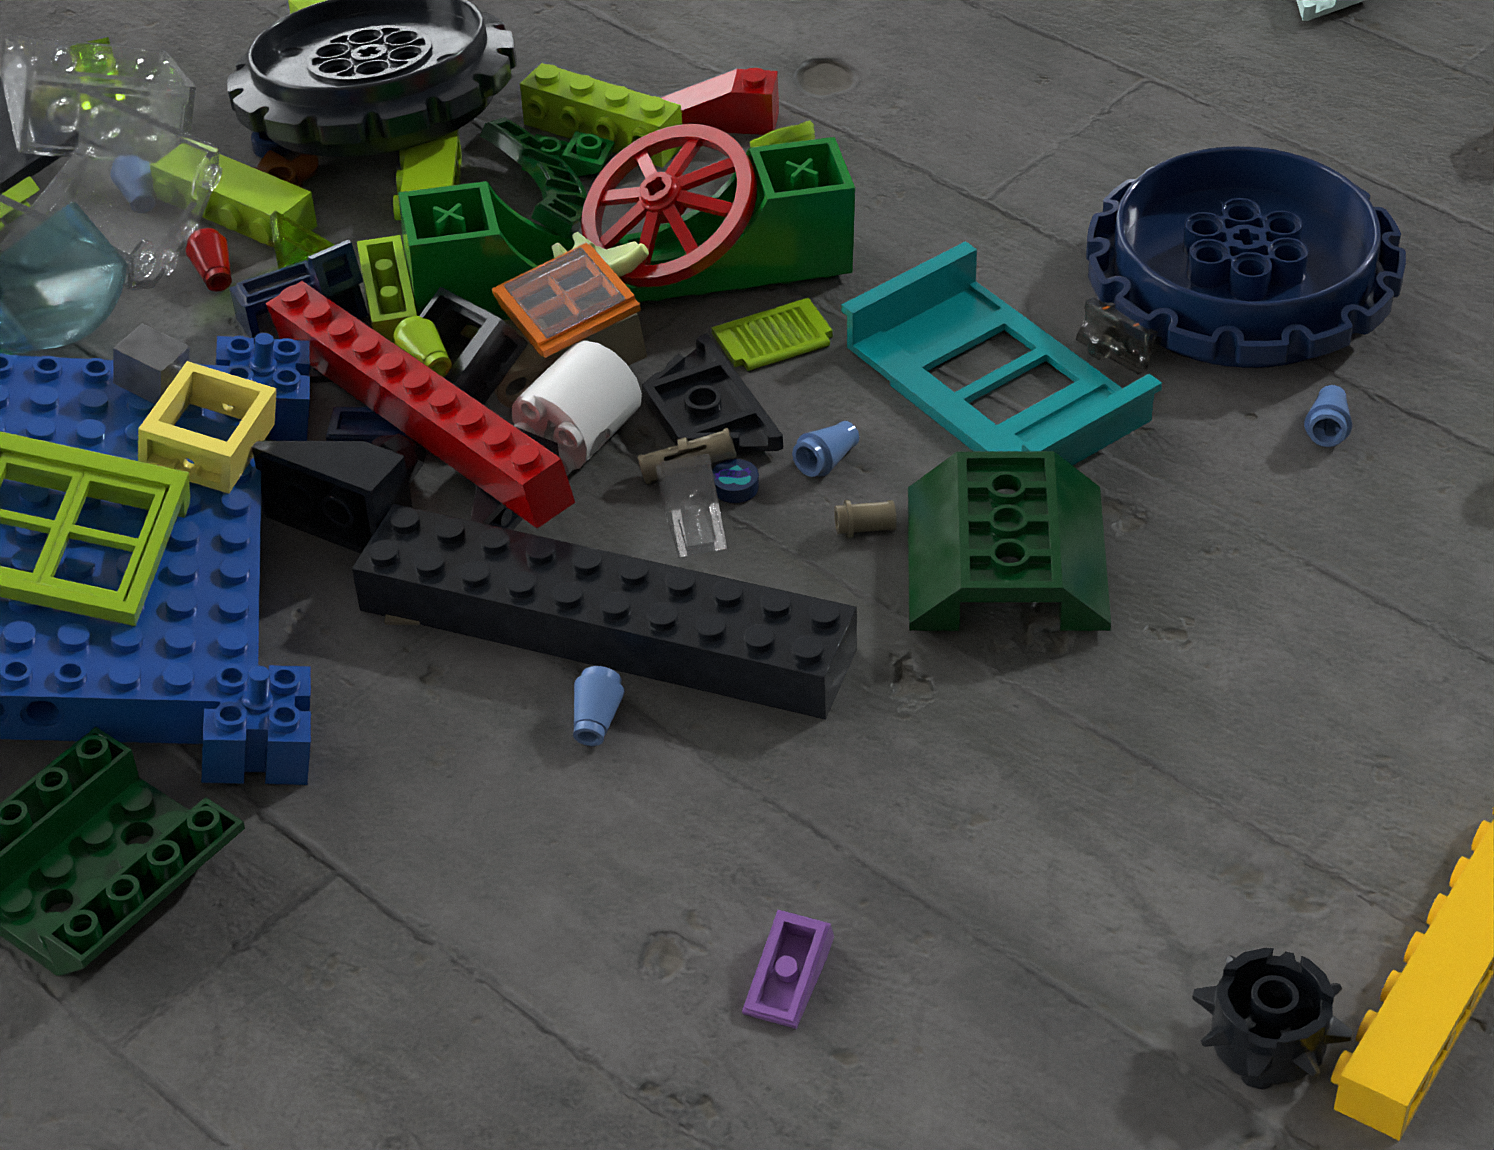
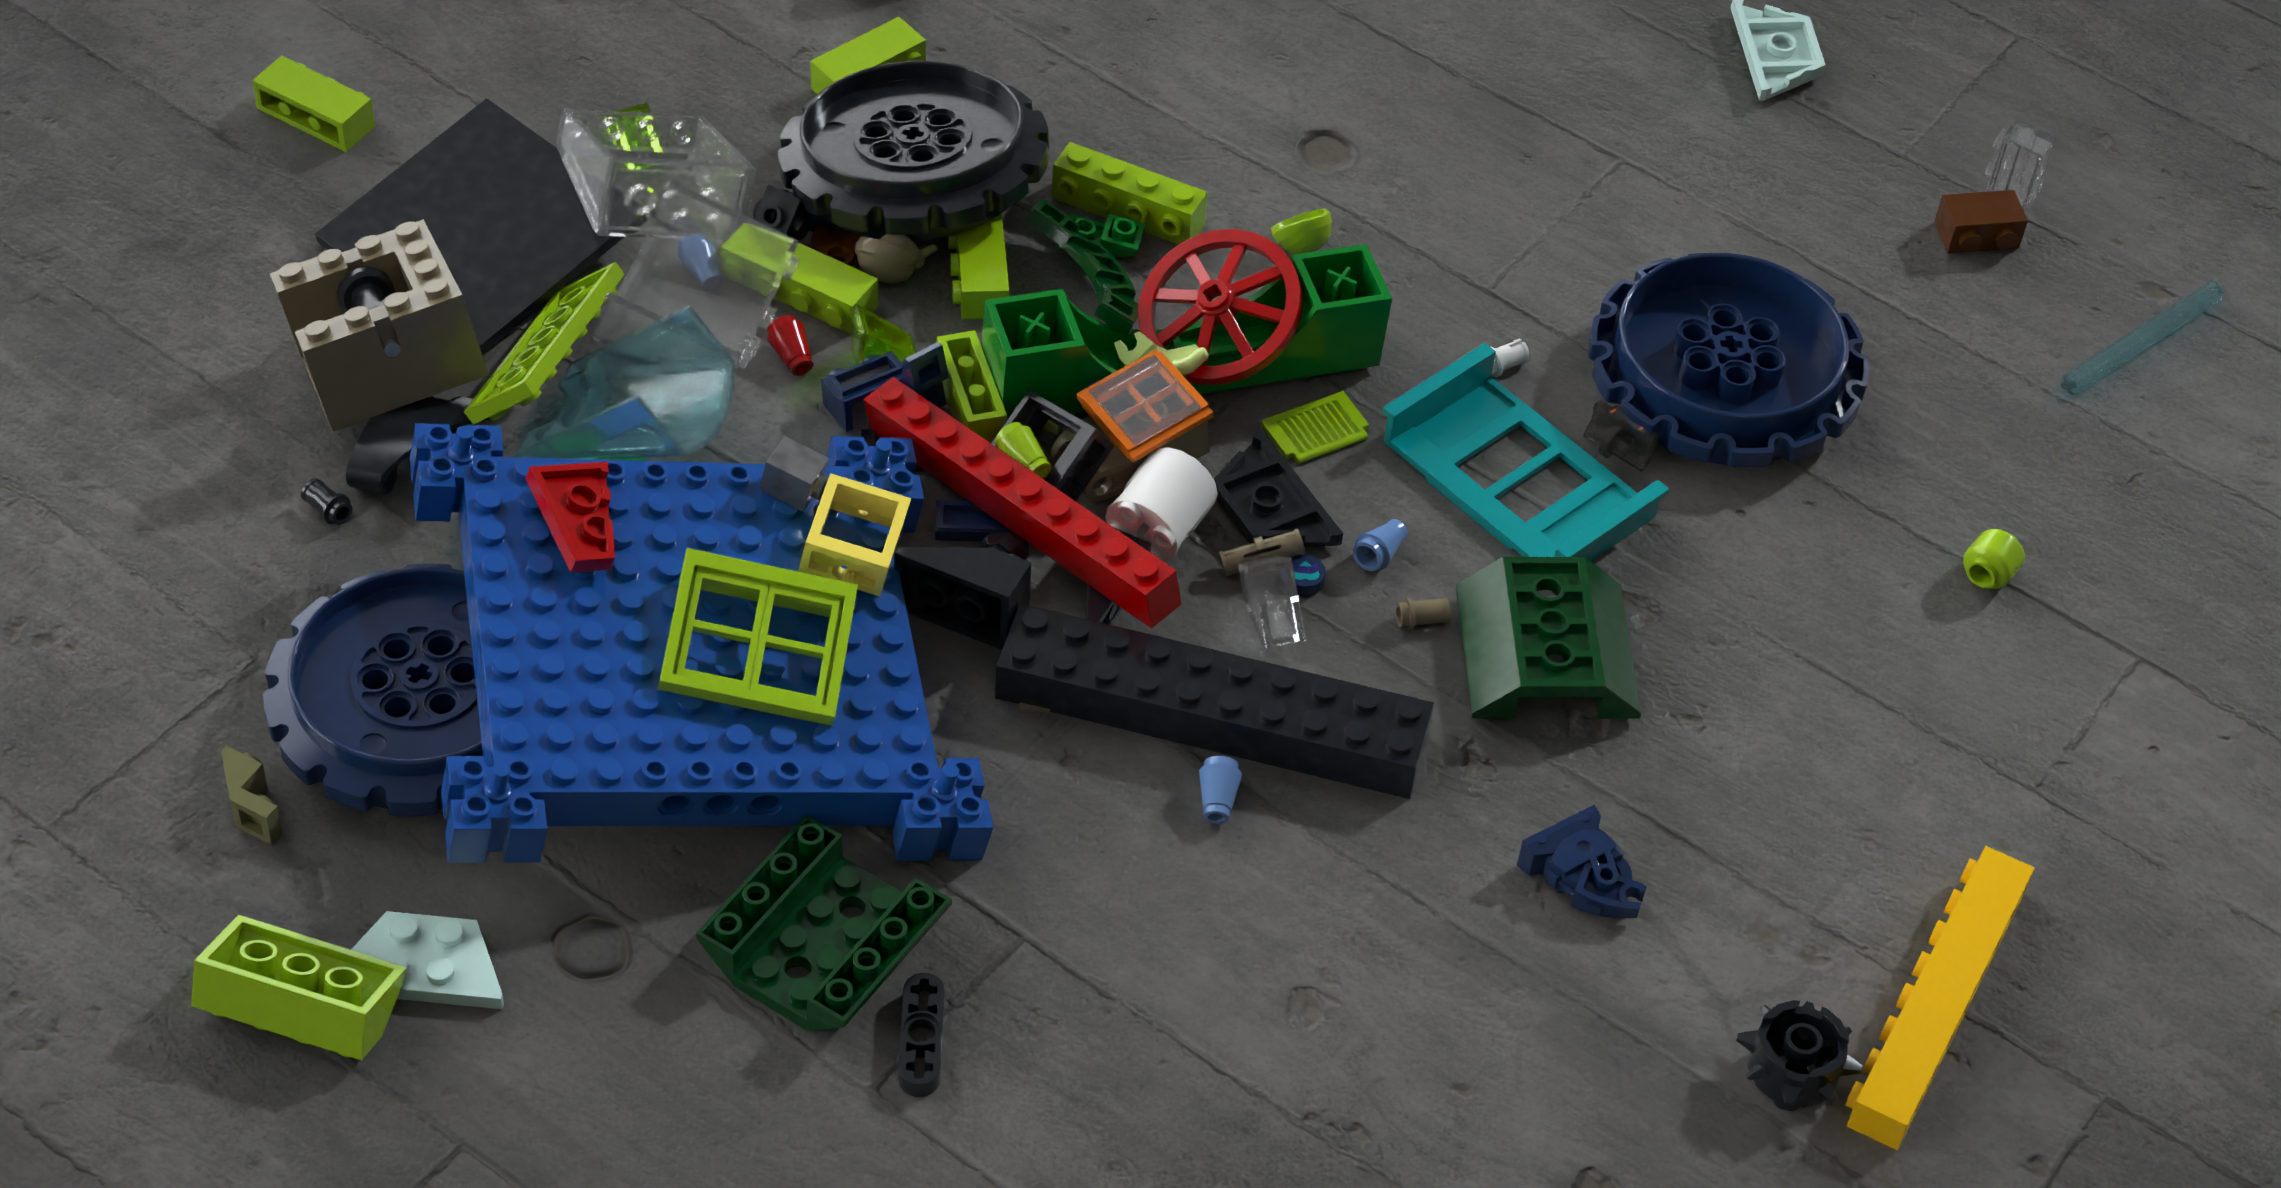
camera: 10 degrees left, 5 degrees up
(192, 1002) = (912, 1049): none -> black beam
(228, 133) = (783, 212): none -> black brick
(333, 173) = (891, 257): none -> dark tan hat
(732, 102) = (1244, 183): red slope -> none
(788, 969) = (1411, 1018): medium lavender slope -> none
(997, 261) = (1509, 356): none -> white pin
(1022, 790) = (1584, 865): none -> dark blue piece
(1329, 417) = (1809, 517): medium blue cone -> none

